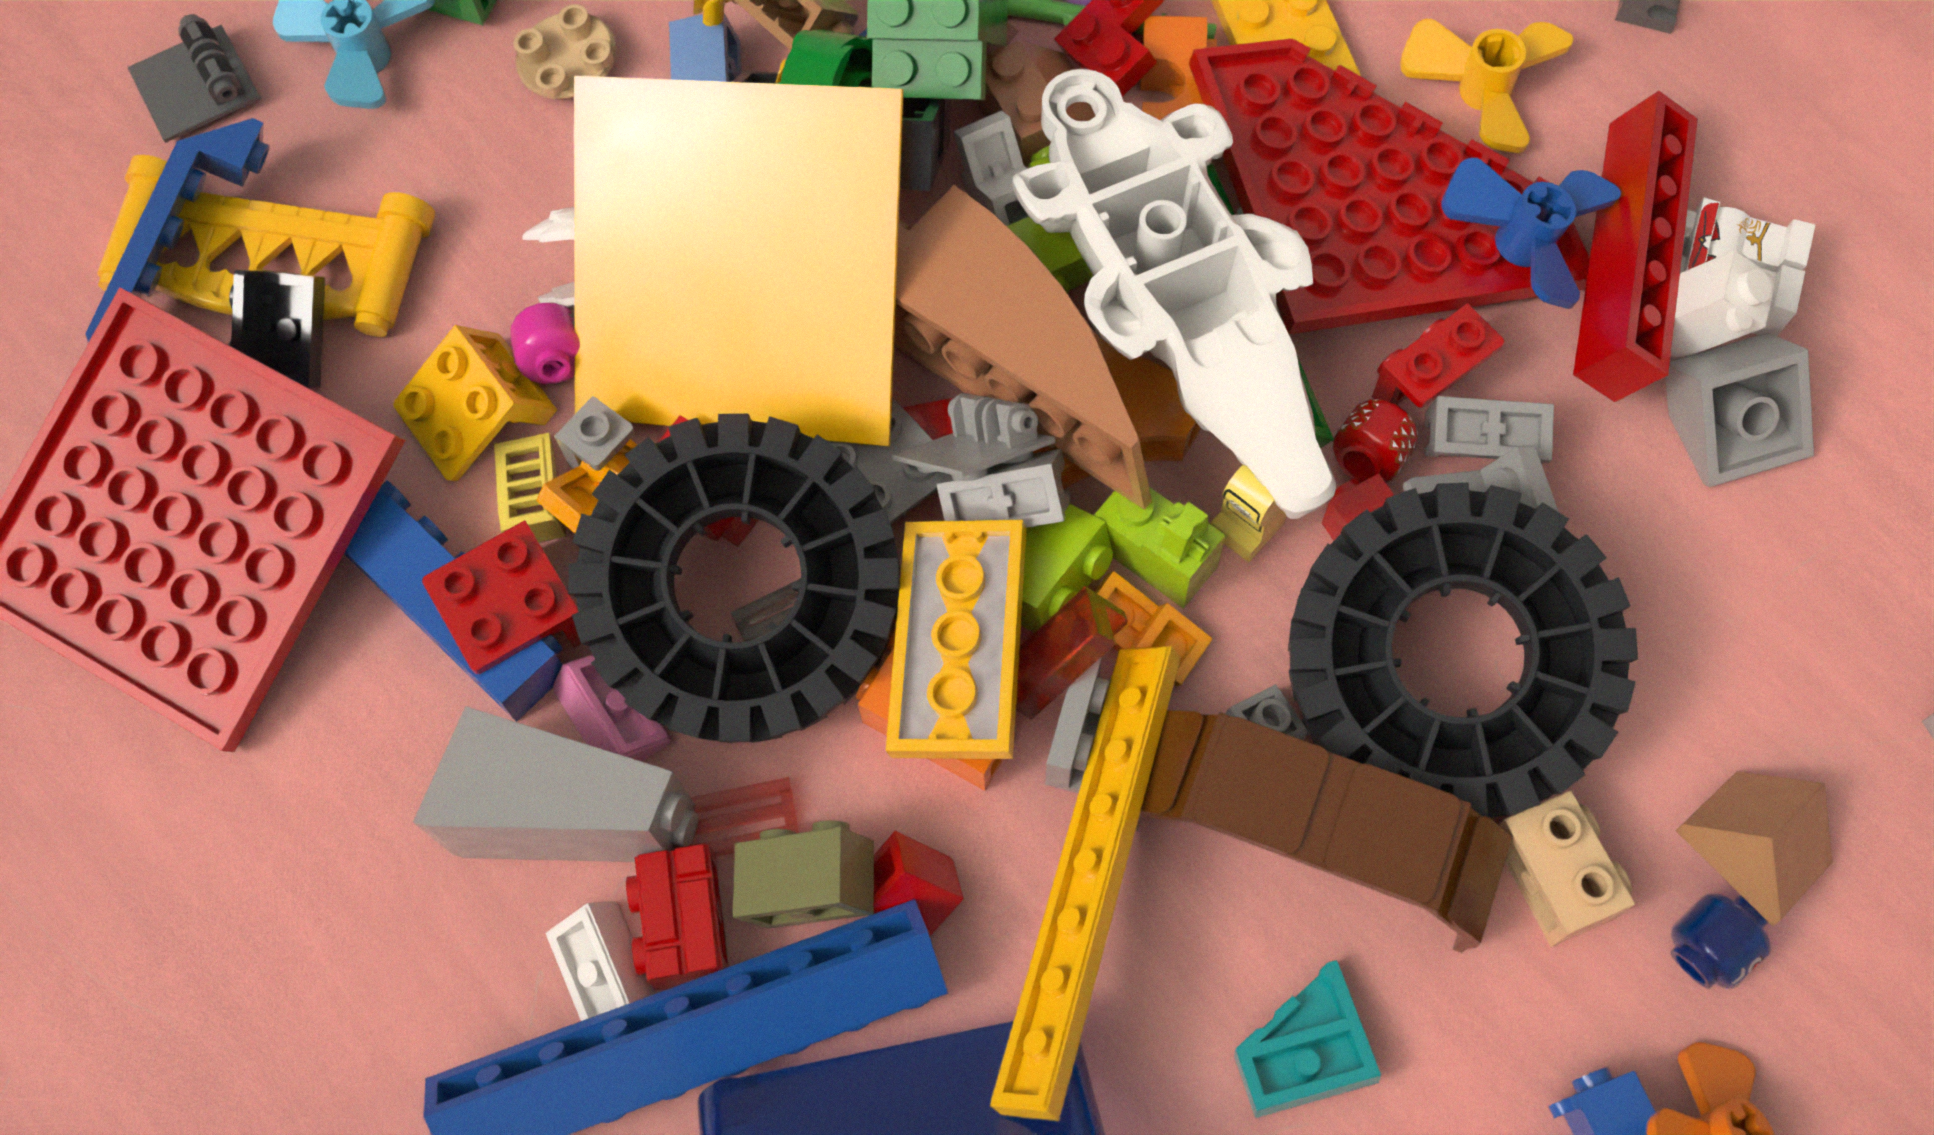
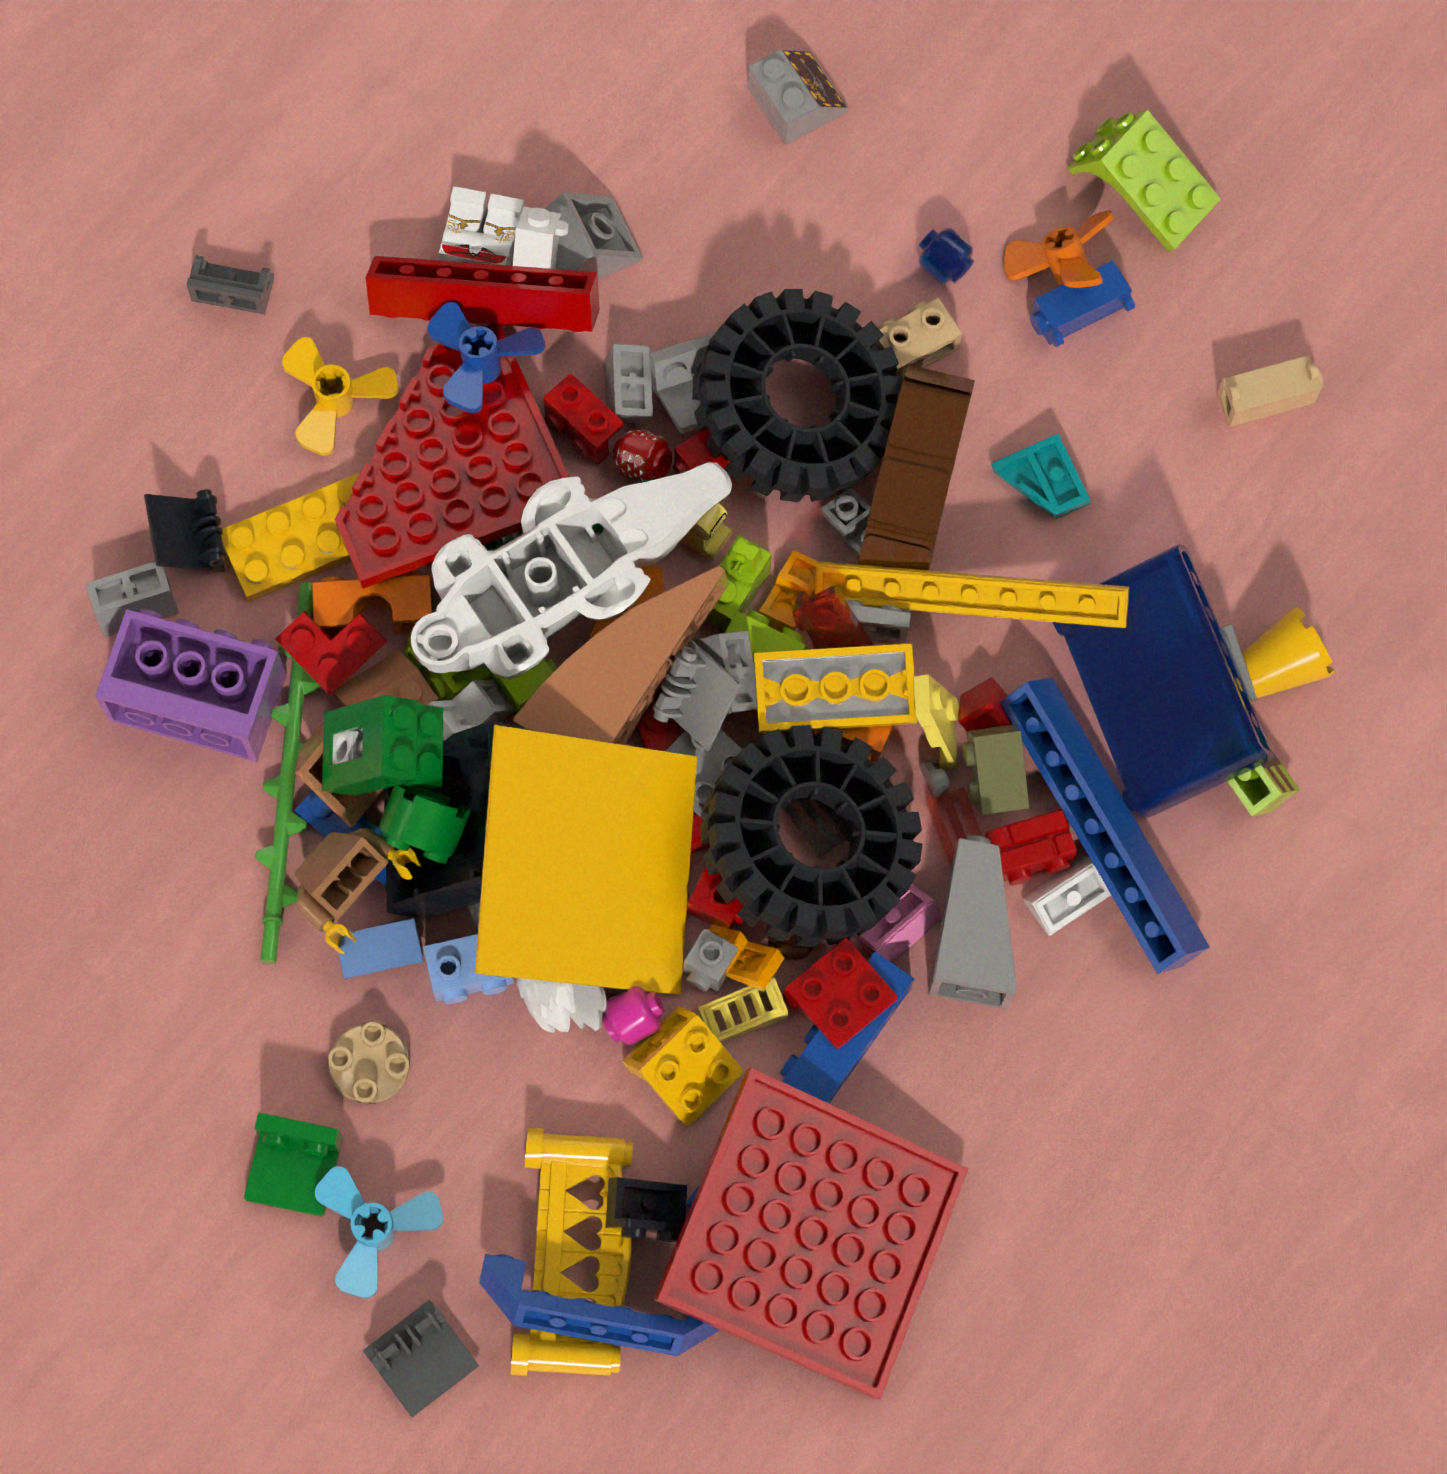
camera: 105 degrees left, 5 degrees up
(820, 791) = (935, 778): none -> dark grey tile
(905, 794) = (937, 714): none -> light yellow wing
(1764, 838) = (881, 232): medium nougat slope -> none

